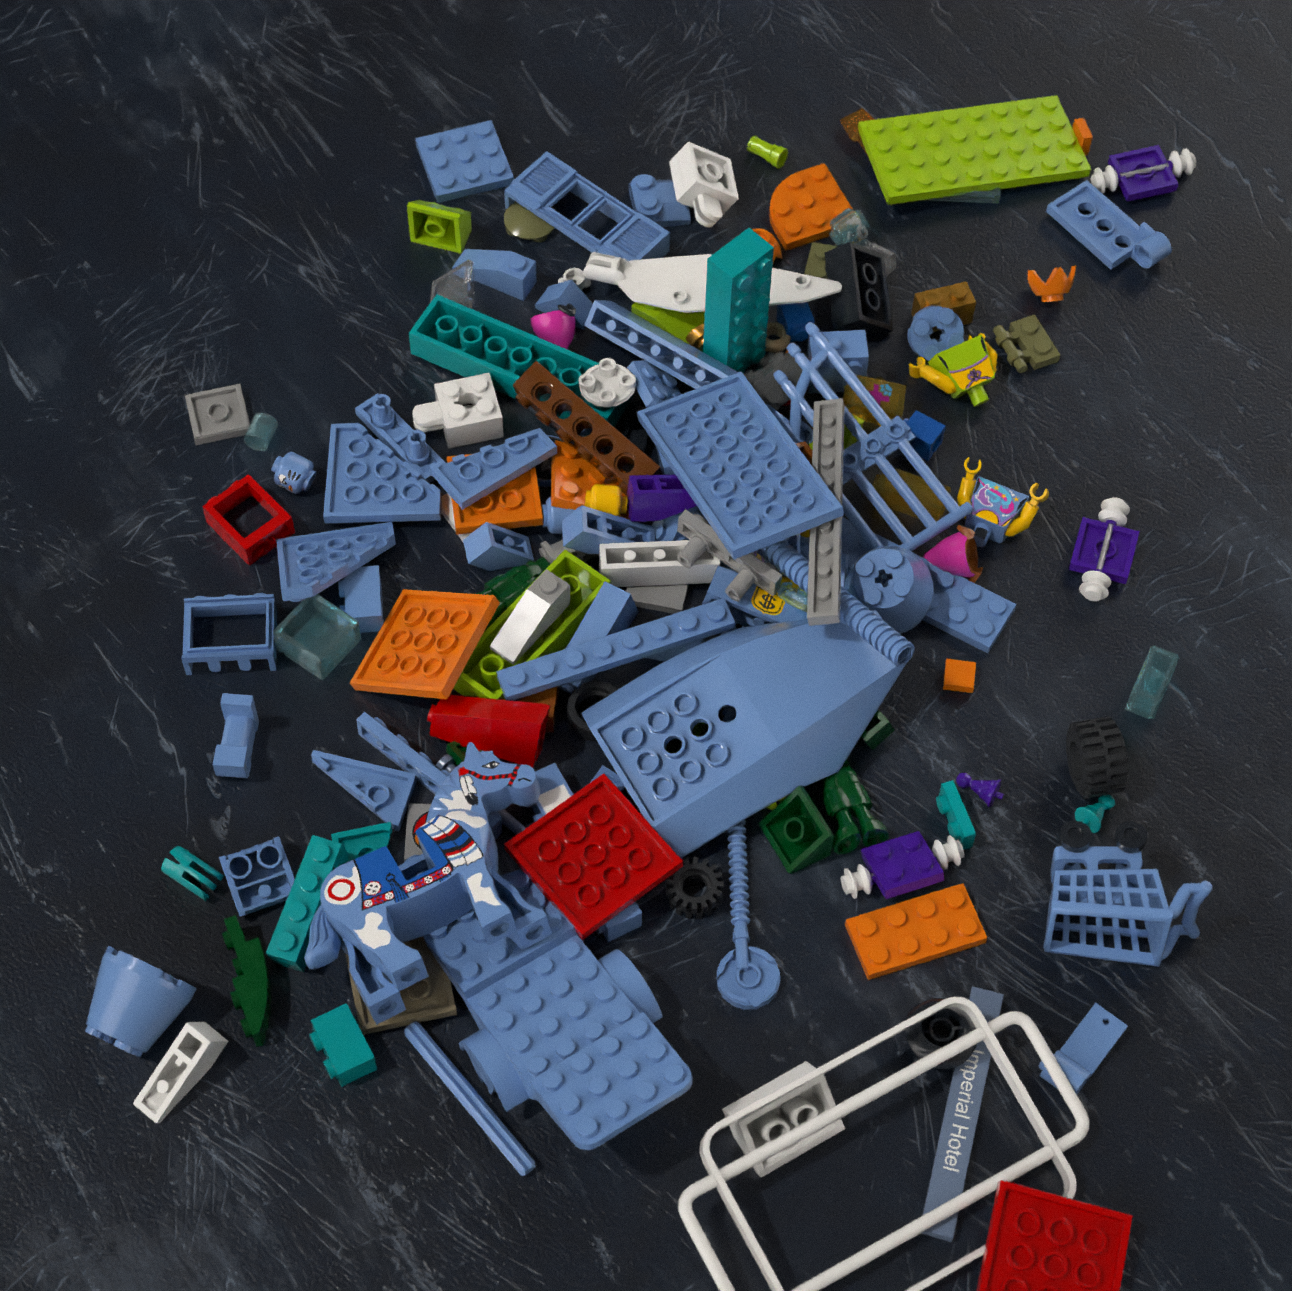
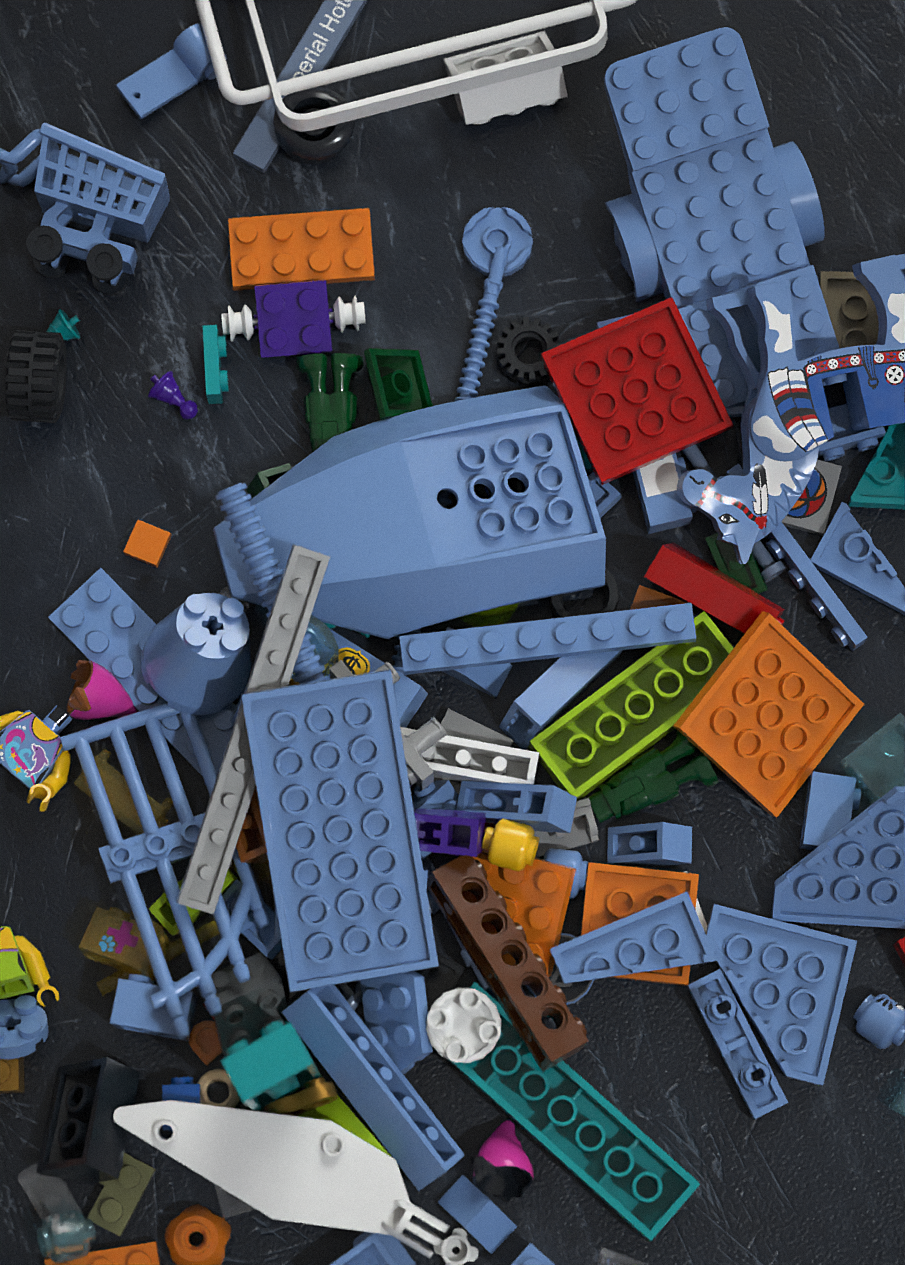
camera: 165 degrees left, 20 degrees up
(462, 423) = (651, 1061): white brick -> none
(469, 1098) = (822, 176): medium blue axle -> none
(532, 616) = (639, 700): slope -> none
(927, 434) = (80, 884): blue brick -> none

